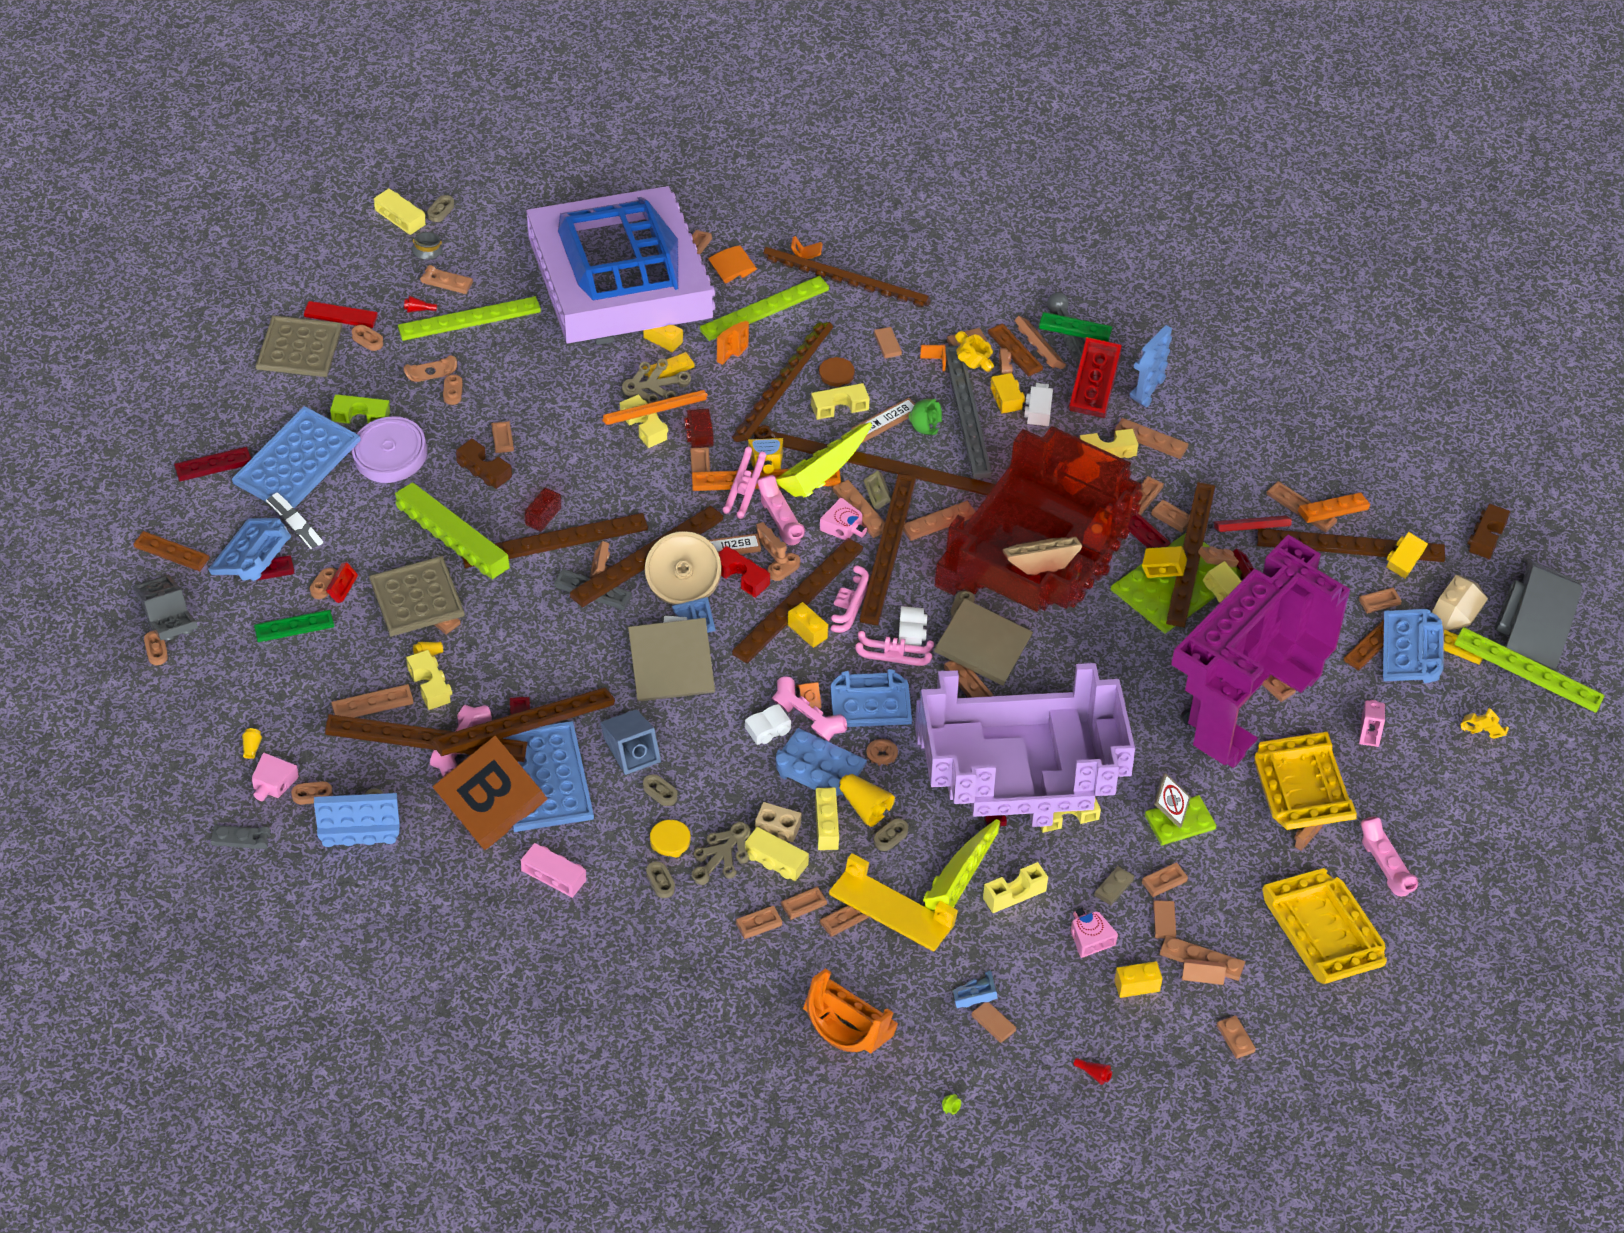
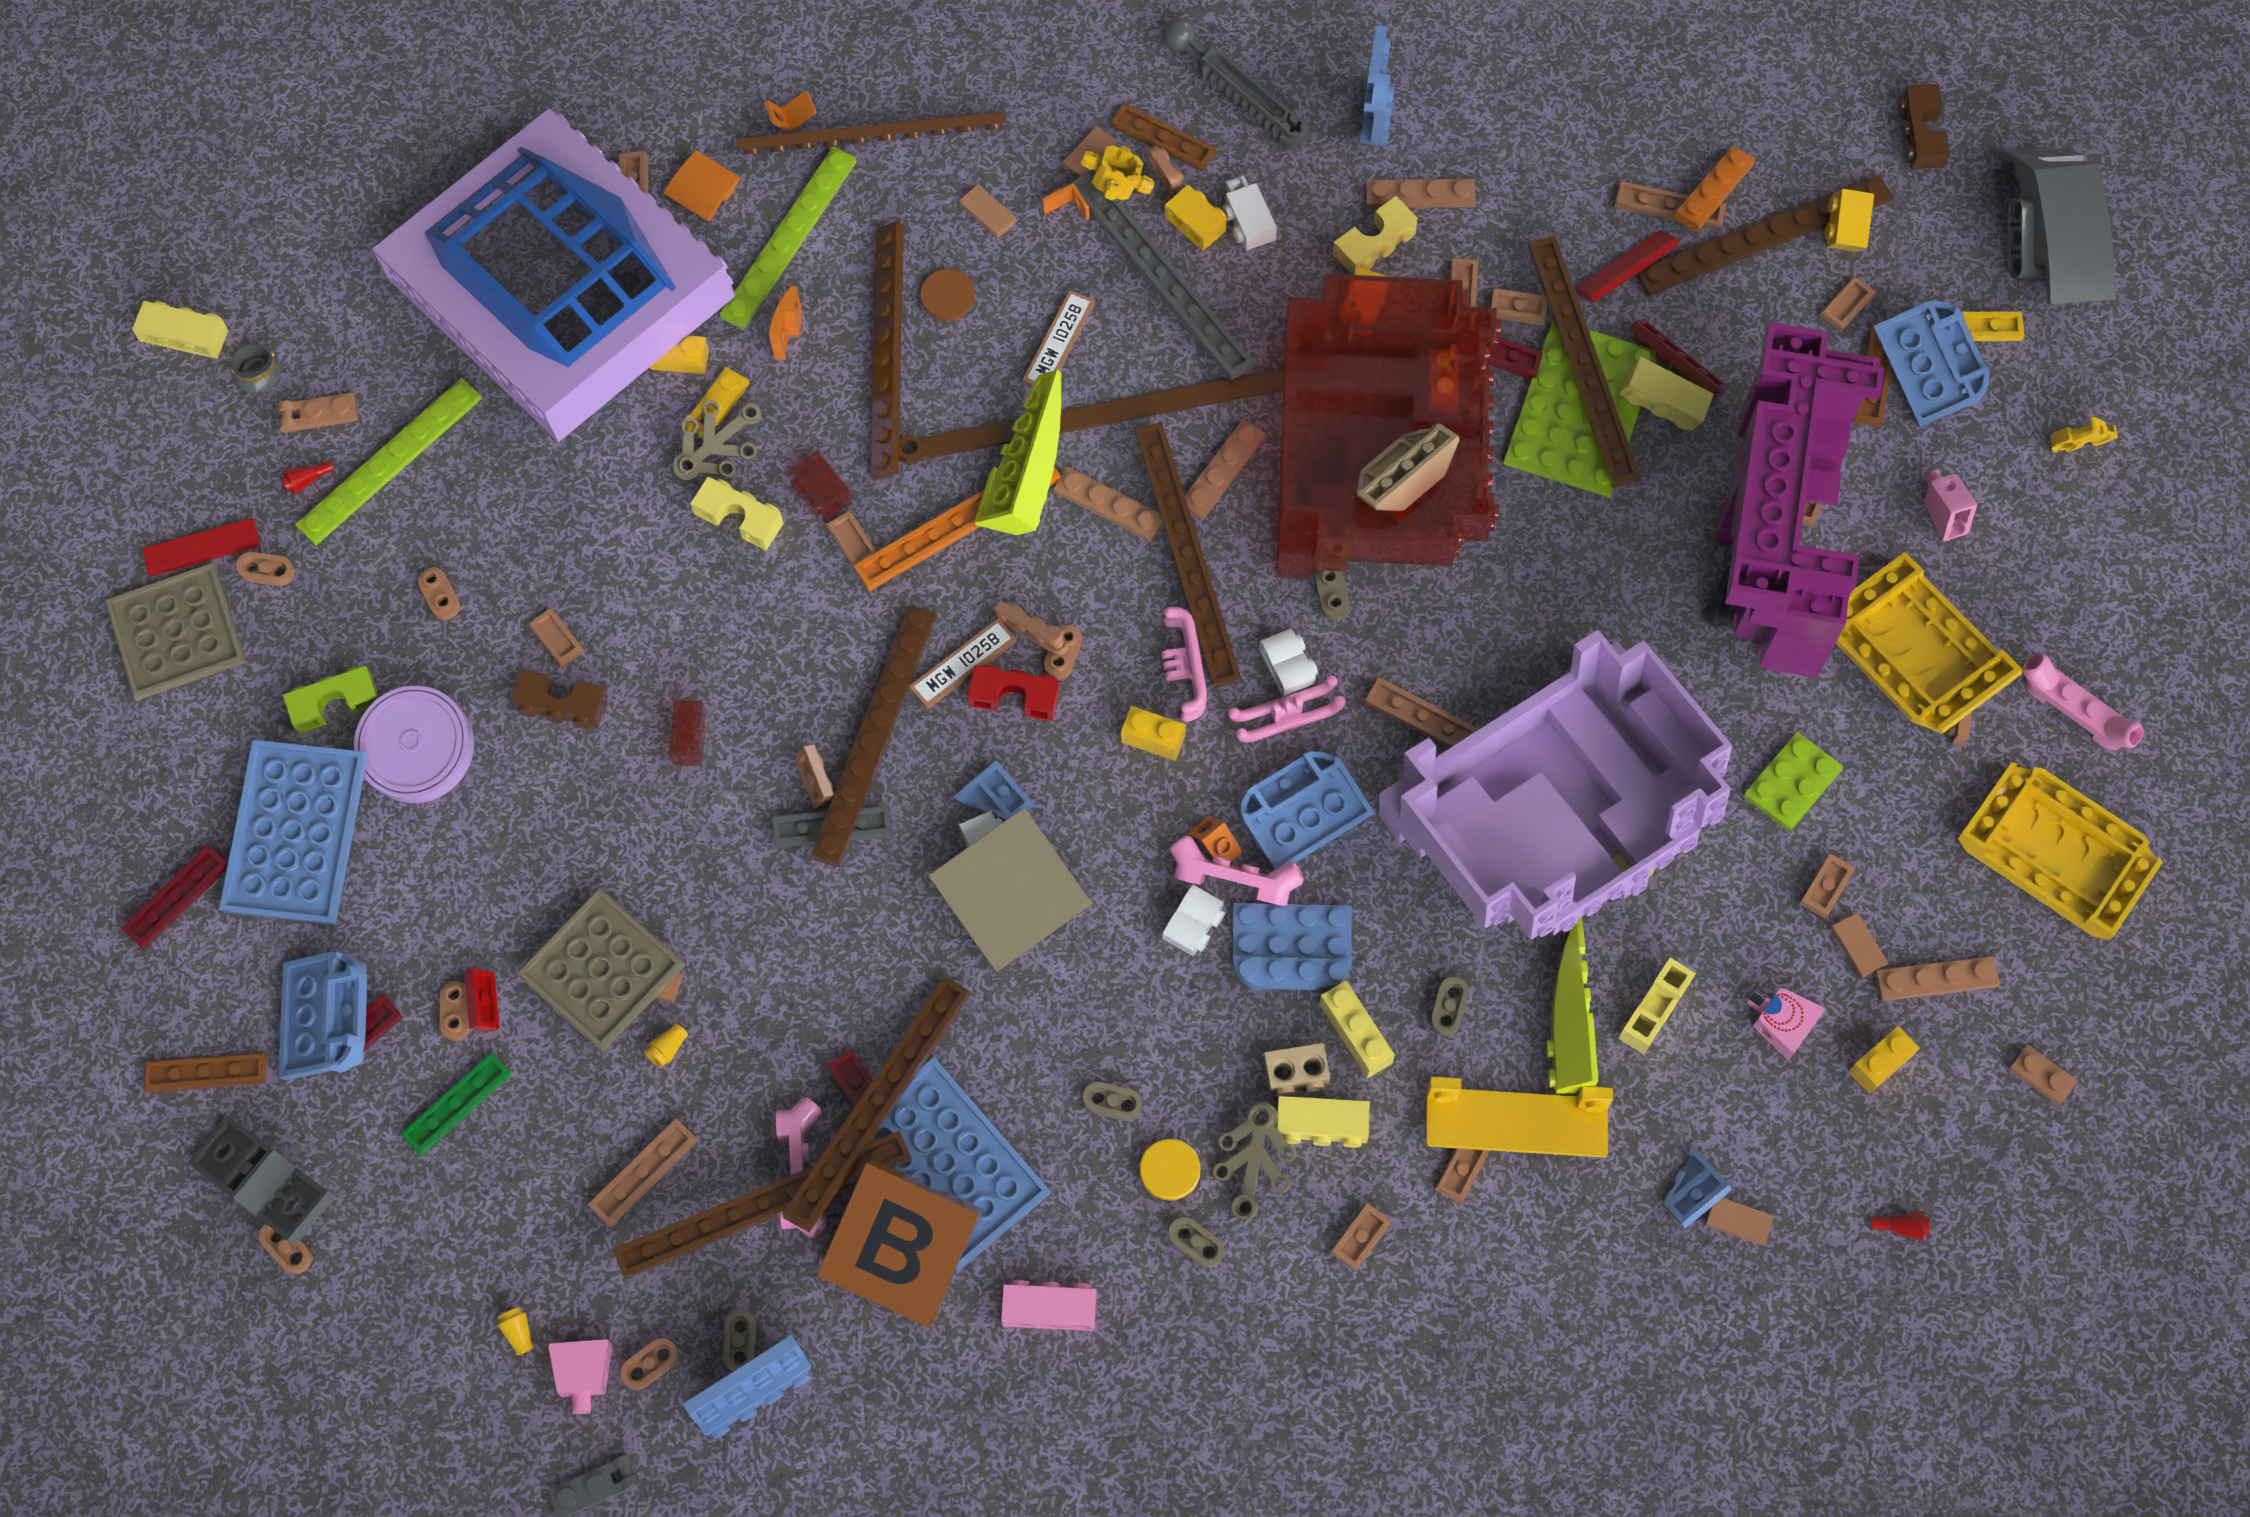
camera: 25 degrees left, 20 degrees up
(295, 520) = (351, 932): sticker -> none
(424, 667) = (680, 1077): light yellow arch -> none
(437, 211) = (236, 296): dark tan plate -> none
(443, 368) = (403, 563): nougat piece -> none
(452, 530) = (586, 837): lime brick -> none
(571, 536) = (728, 773): reddish brown plate -> none
(631, 741) = (1030, 1045): sand blue slope -> none
(654, 407) = (745, 489): orange axle -> none
(683, 568) = (938, 733): tan dish -> none
(744, 483) = (938, 551): bright pink piece -> none
(773, 450) = (937, 485): yellow torso -> none
(773, 500) = (1009, 567): bright pink plate -> none
(803, 593) = (1112, 697): reddish brown plate -> none
(804, 903) = (1398, 1172): nougat tile -> none
(831, 997) = (1562, 1353): orange piece -> none
(842, 521) = (1101, 539): bright pink torso -> none
(853, 396) = (997, 326): light yellow arch -> none
(866, 798) = (1391, 973): yellow cone -> none
(877, 490) = (1116, 464): dark tan plate -> none
(882, 745) = (1374, 874): nougat gear -> none
(926, 413) = (1112, 313): bright green cylinder -> none
(951, 1104) = (1760, 1377): lime plate -> none
(983, 642) = (1396, 639): dark tan tile -> none
(1037, 340) = (1184, 108): nougat plate -> none
(1075, 327) = (1231, 68): green tile -> none
(1095, 377) = (1307, 140): red brick -> none
(1114, 885) = (1769, 928): dark tan plate -> none
(1164, 562) = (1562, 394): yellow brick -> none
(1172, 800) = (1780, 767): piece -> none
(1204, 971) = (1954, 1001): tile -> none
(1217, 556) = (1621, 348): nougat plate -> none
(1459, 603) = (1949, 259): tan wedge -> none
(1529, 669) = (2092, 321): lime plate -> none

